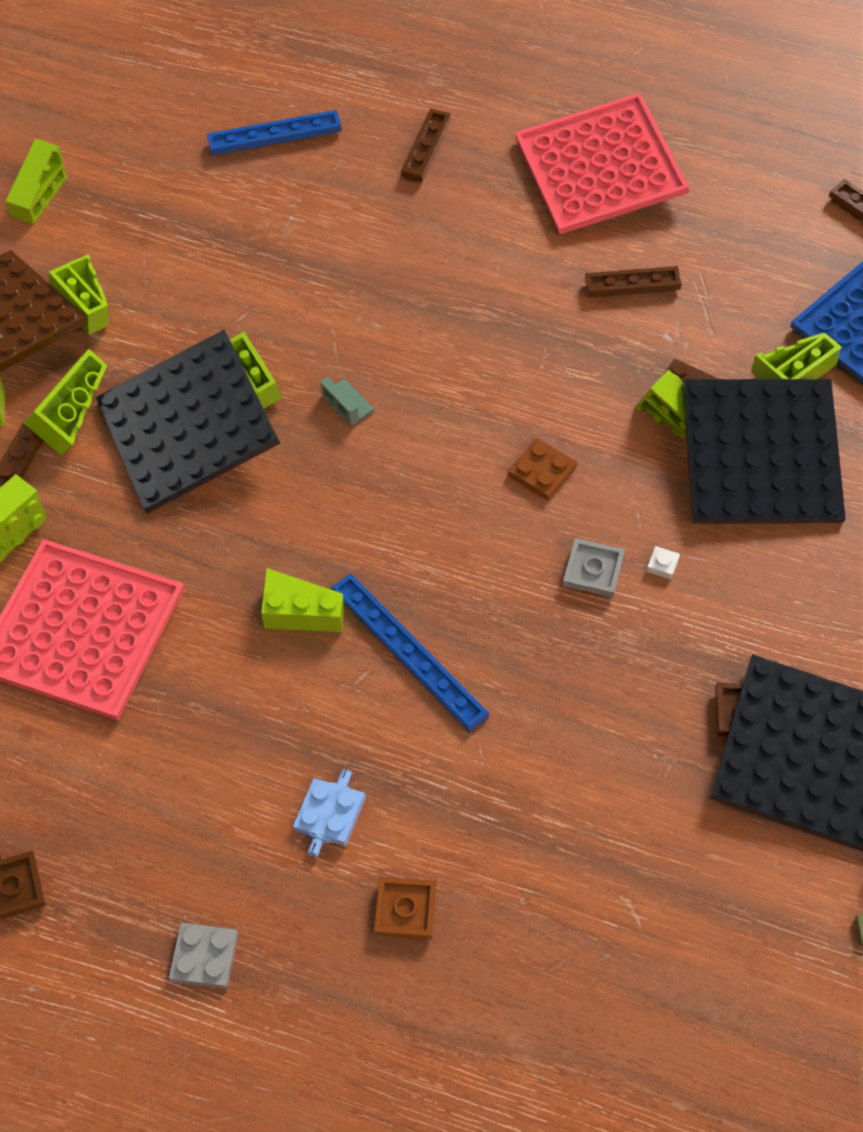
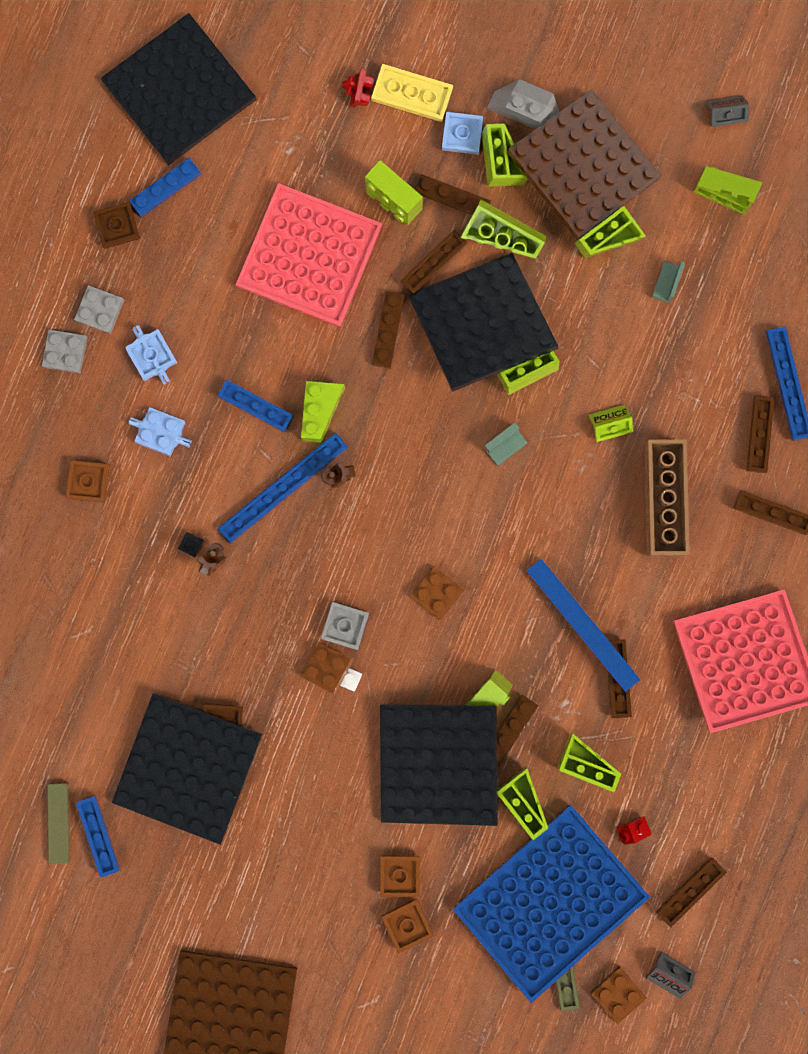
camera: 90 degrees right, 25 degrees up
(102, 481) = (434, 262): none -> reddish brown plate
(141, 908) = (99, 309): none -> light grey plate
(145, 239) = (667, 281): none -> sand green panel
(190, 533) = (388, 329): none -> reddish brown plate
(214, 827) = (151, 355): none -> light blue plate
(292, 687) = (255, 406): none -> blue plate
(318, 293) = (611, 423): none -> lime panel
(334, 156) = (760, 434): none -> reddish brown plate
(391, 573) = (338, 474): none -> reddish brown hips
(413, 235) = (666, 498): none -> medium nougat brick
(494, 761) = (191, 544): none -> black plate
(518, 725) = (211, 559): none -> reddish brown hips
(570, 314) = (583, 625): none -> blue tile
(652, 585) = (327, 668): none -> dark orange plate
(740, 305) = (587, 765): none -> lime wedge
(813, 263) = (634, 831): none -> red bracket

